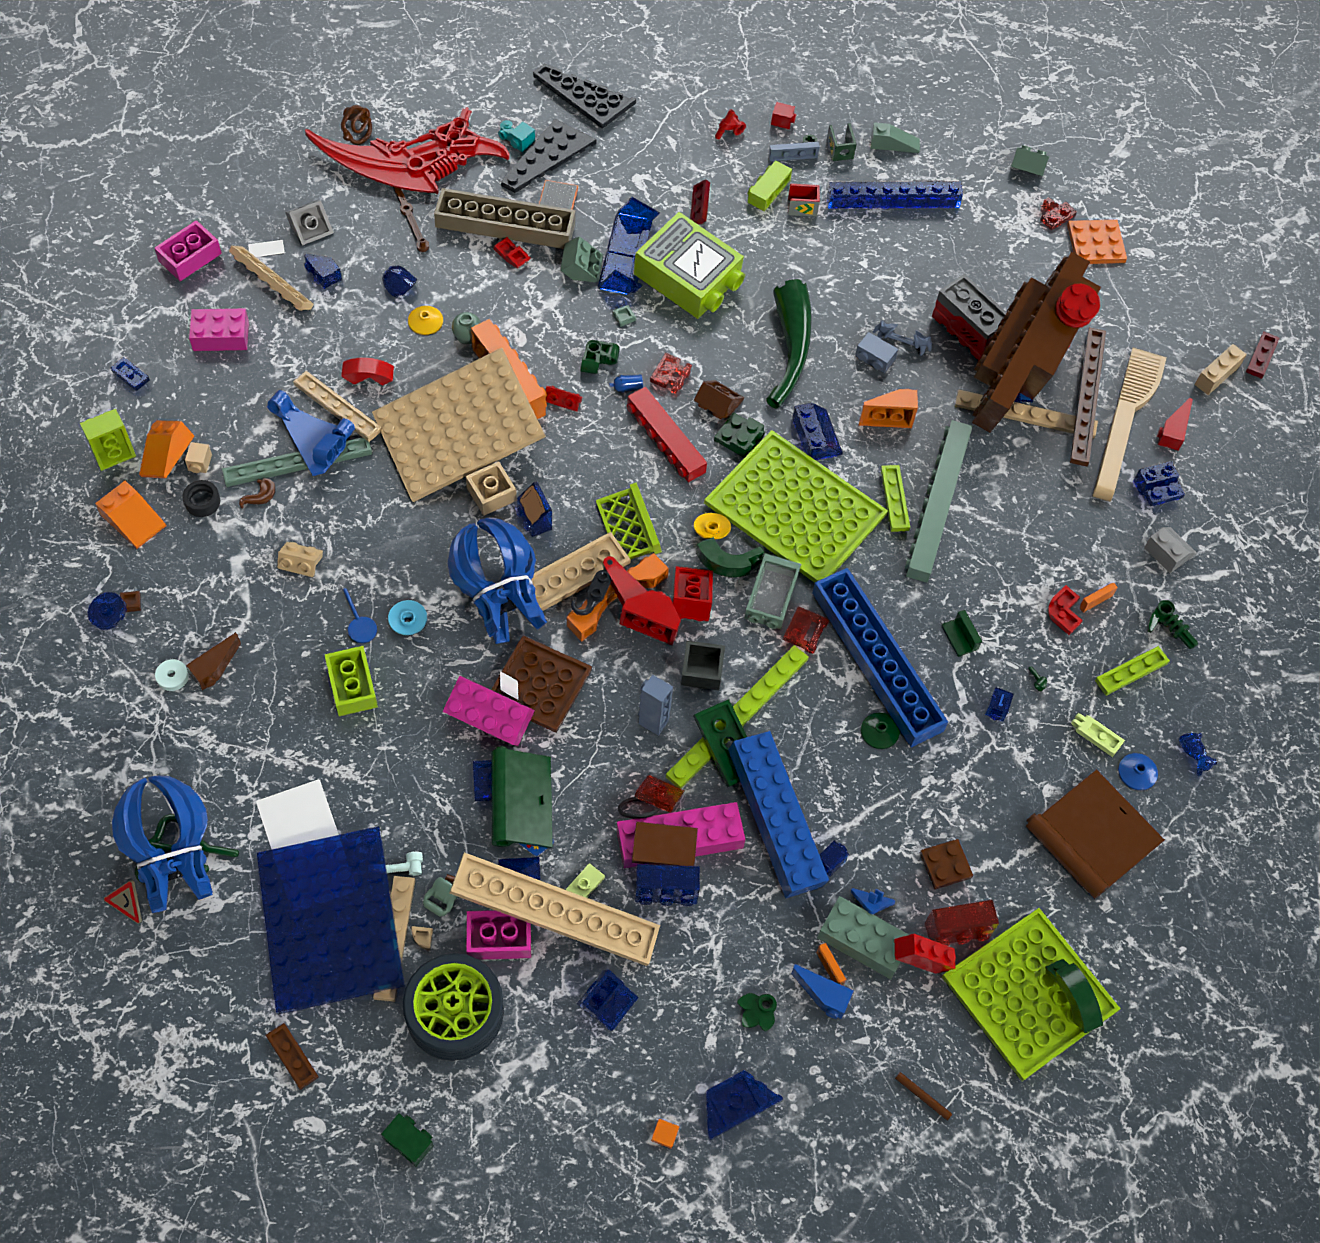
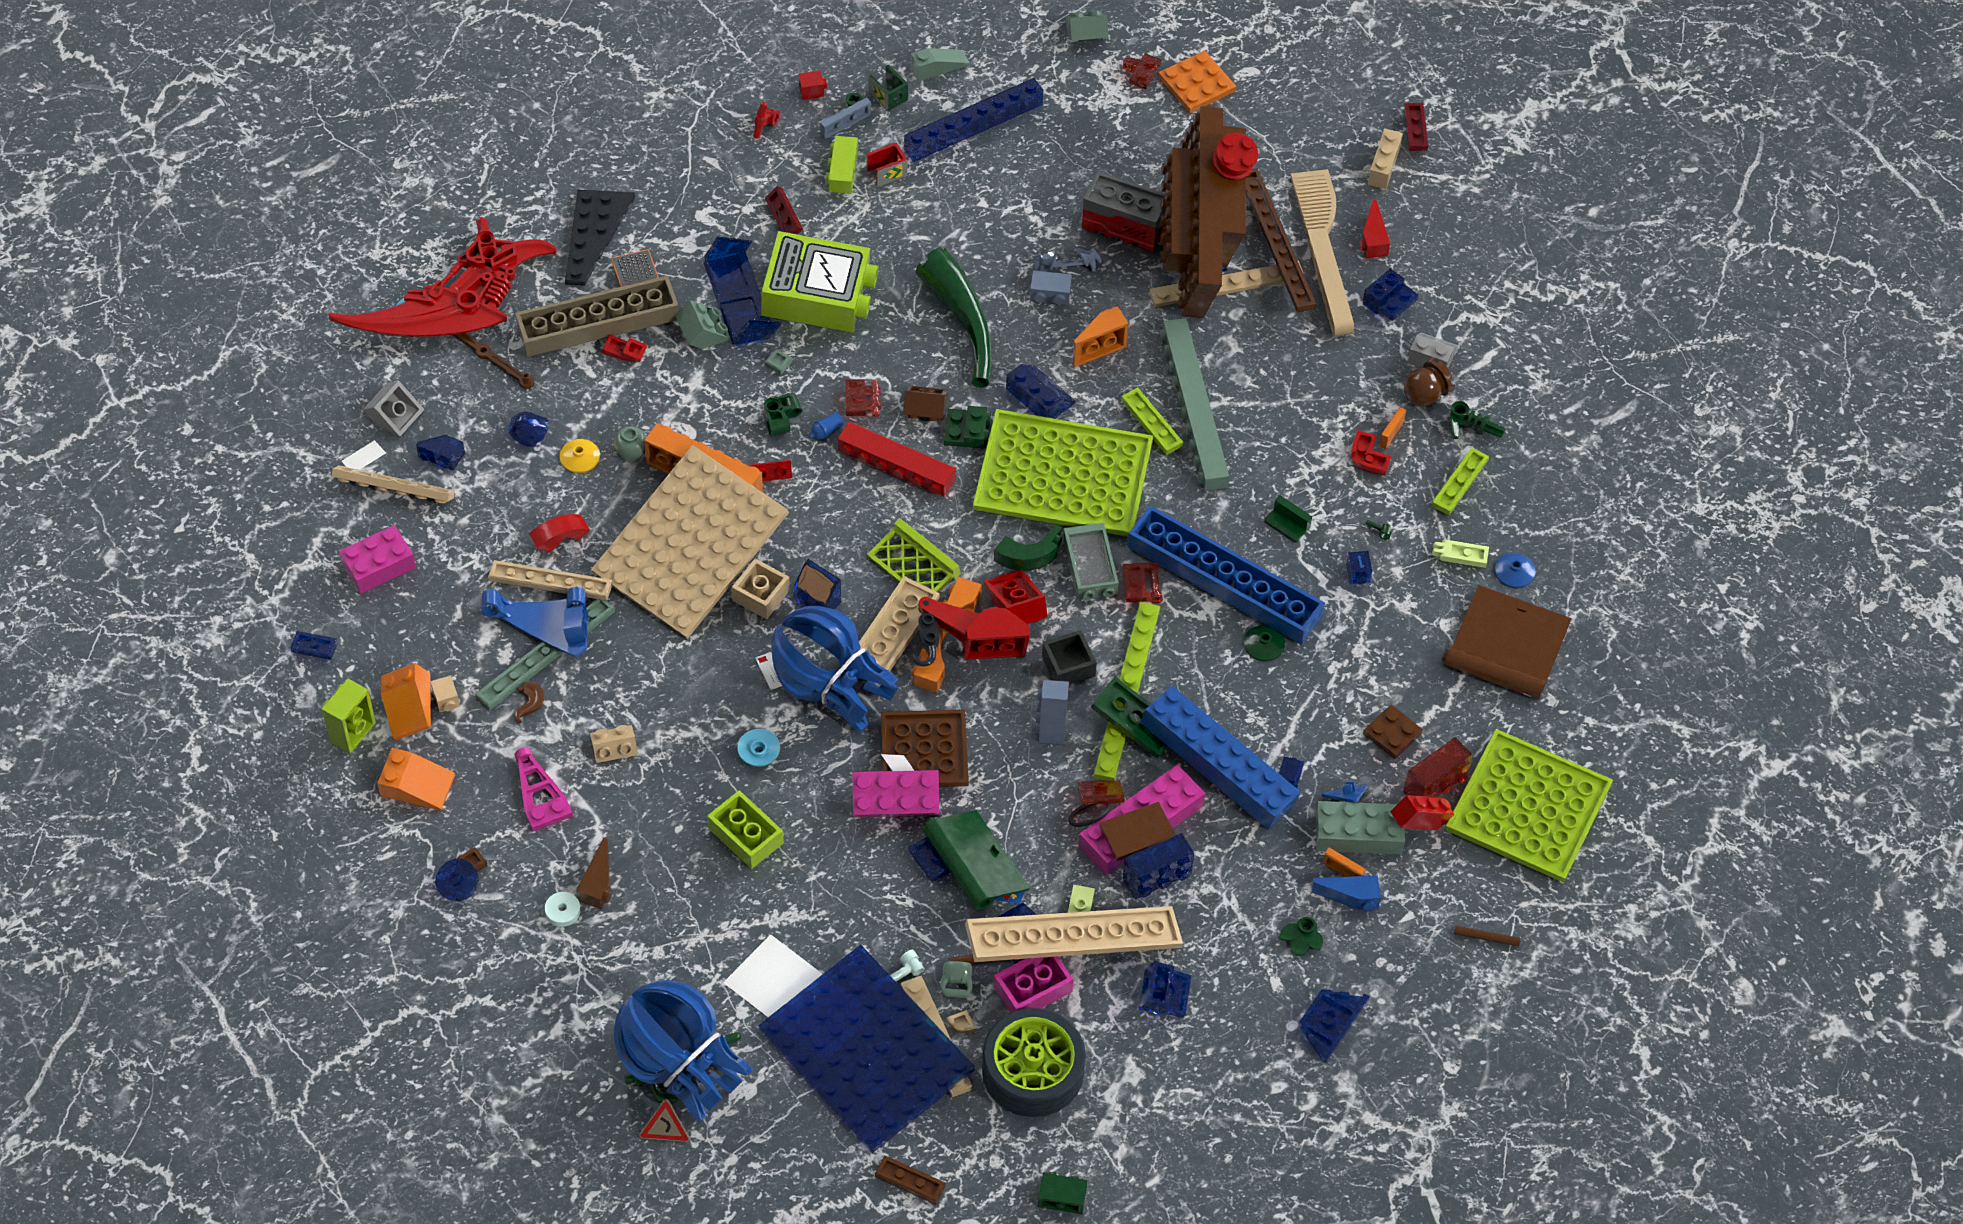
camera: 25 degrees left, 5 degrees down
(188, 250) = (289, 494): dark pink brick -> none
(200, 486) = (475, 717): black tyre -> none
(216, 590) = (548, 812): none -> dark pink plate
(354, 114) = (373, 273): reddish brown piece -> none
(362, 628) = (716, 780): blue piece -> none
(519, 137) = (553, 226): teal brick -> none
(586, 96) = (593, 151): black wing -> none
(665, 1133) = (1284, 1076): orange tile -> none
(712, 525) = (996, 526): yellow dish -> none
(1081, 997) = (1572, 779): dark green arch -> none
(1148, 573) = (1428, 383): none -> reddish brown tile
(1193, 746) = (1554, 525): clear blue animal -> none

